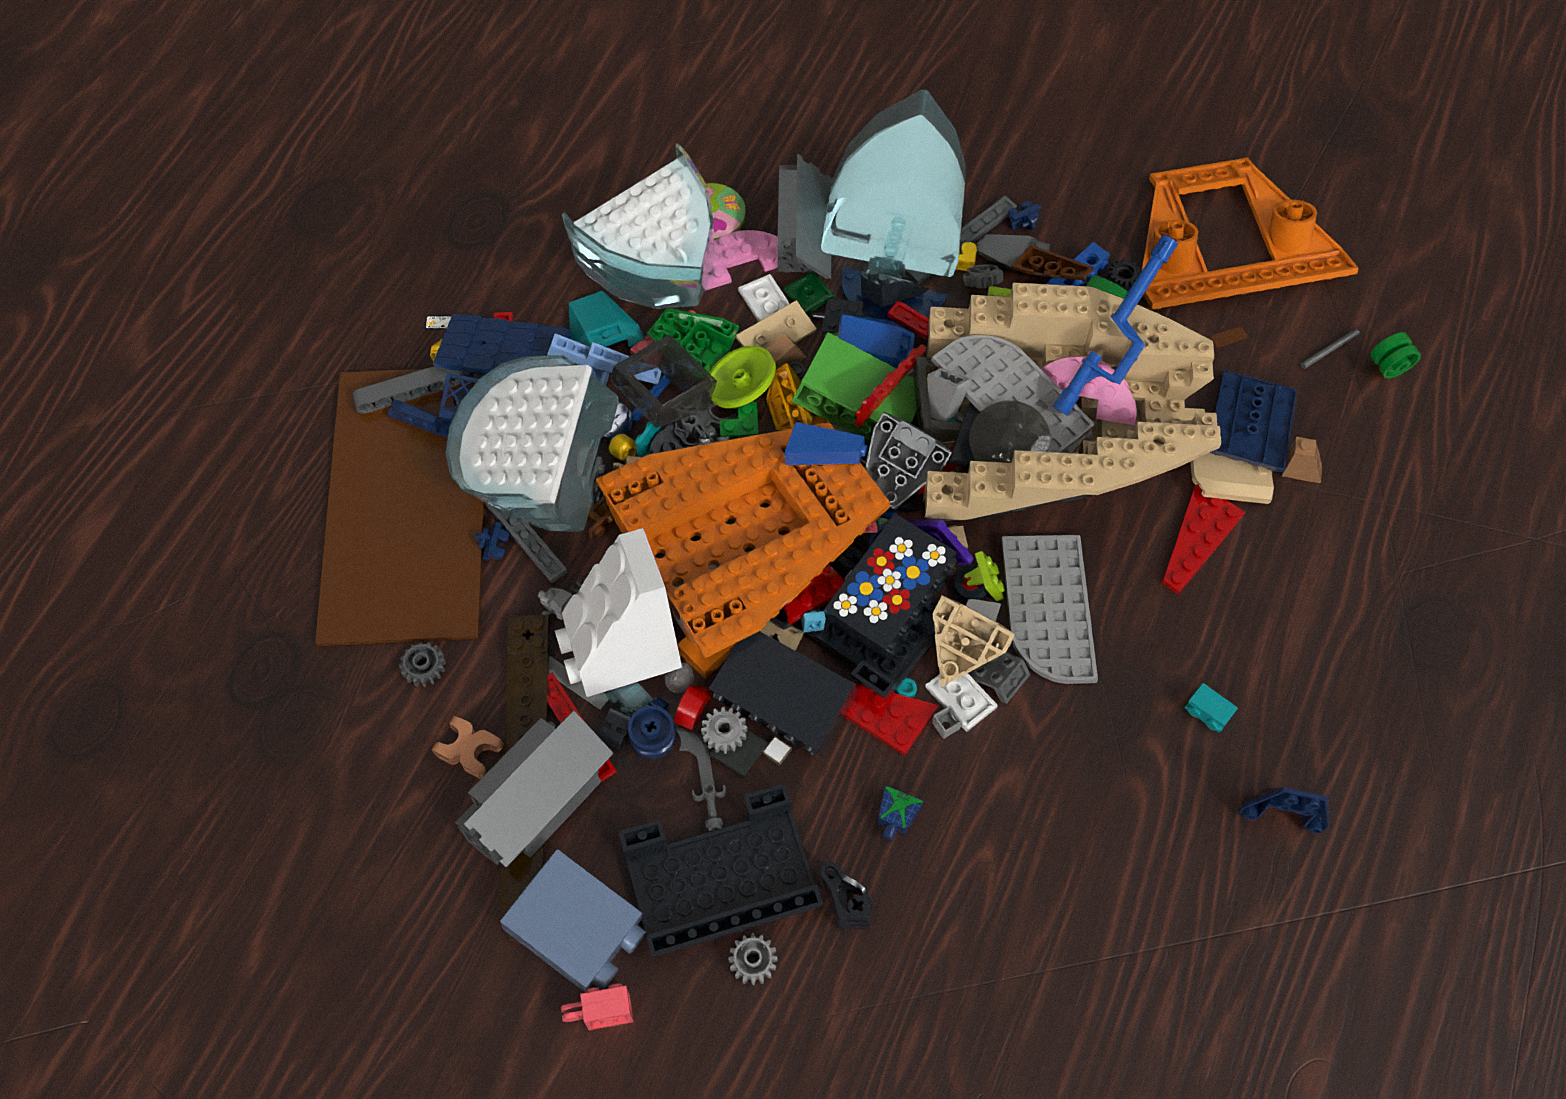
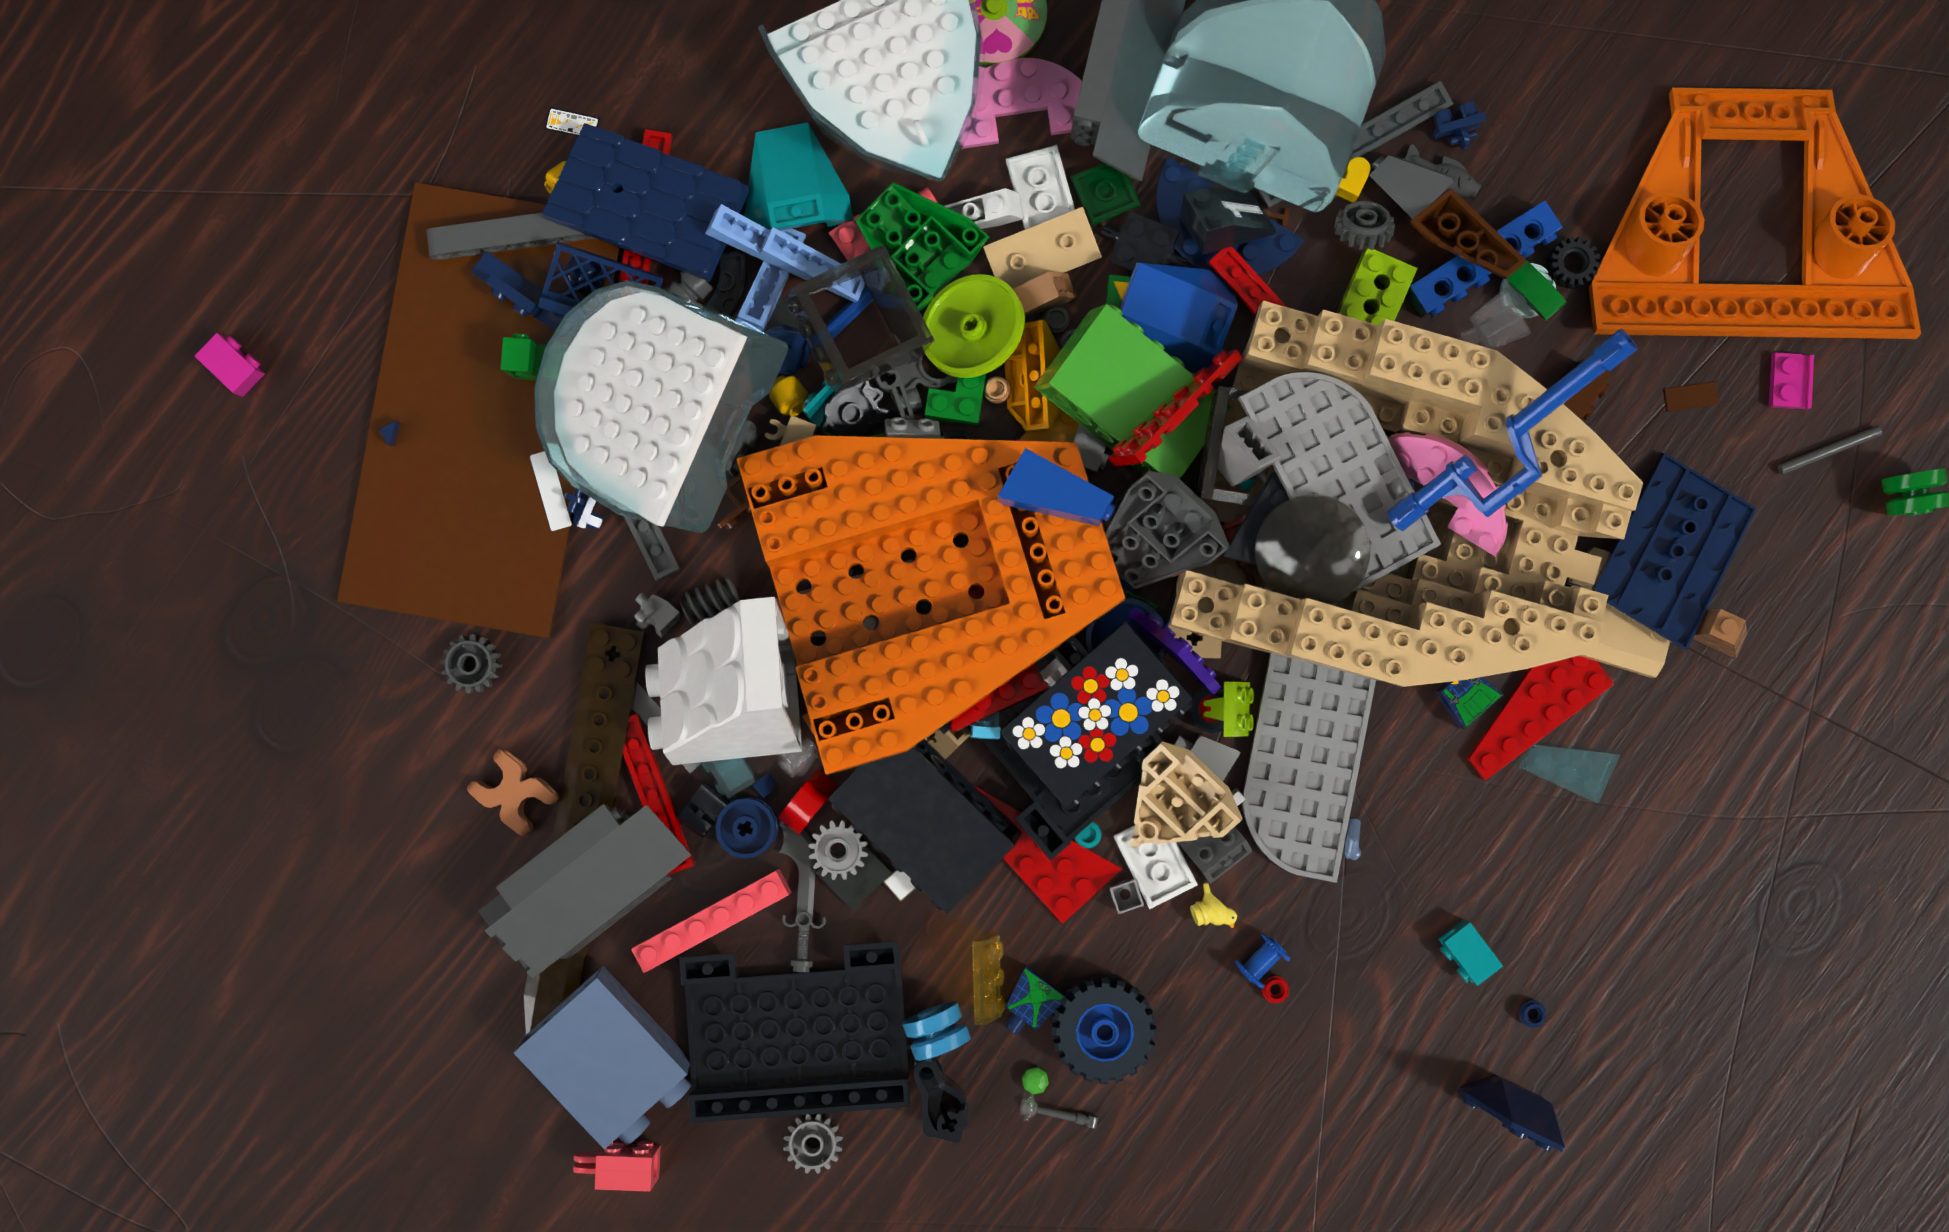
camera: 15 degrees right, 25 degrees up
(219, 504) = (230, 364): none -> dark pink brick
(342, 522) = (390, 432): none -> dark blue piece
(432, 454) = (521, 357): none -> green brick
(464, 539) = (550, 492): none -> white sticker
(637, 806) = (711, 920): none -> coral brick
(738, 312) = (991, 208): none -> white slope
(766, 418) = (996, 390): none -> light nougat plate
(830, 844) = (936, 1030): none -> dark azure wheel
(860, 800) = (987, 979): none -> clear yellow plate
(915, 874) = (1035, 1080): none -> bright green tile
(916, 895) = (1030, 1107): none -> dark grey piece
(957, 818) = (1103, 1029): none -> black wheel
(1013, 719) = (1212, 910): none -> light yellow animal
(1061, 744) = (1262, 960): none -> blue hose
(1080, 762) = (1281, 995): none -> red plate
(1100, 651) = (1351, 846): none -> sand blue arm
(1145, 538) = (1467, 699): none -> torso
(1238, 573) = (1571, 769): none -> clear light blue wing
(1276, 739) = (1538, 1019): none -> dark blue plate
(1289, 315) = (1791, 381): none -> dark pink plate

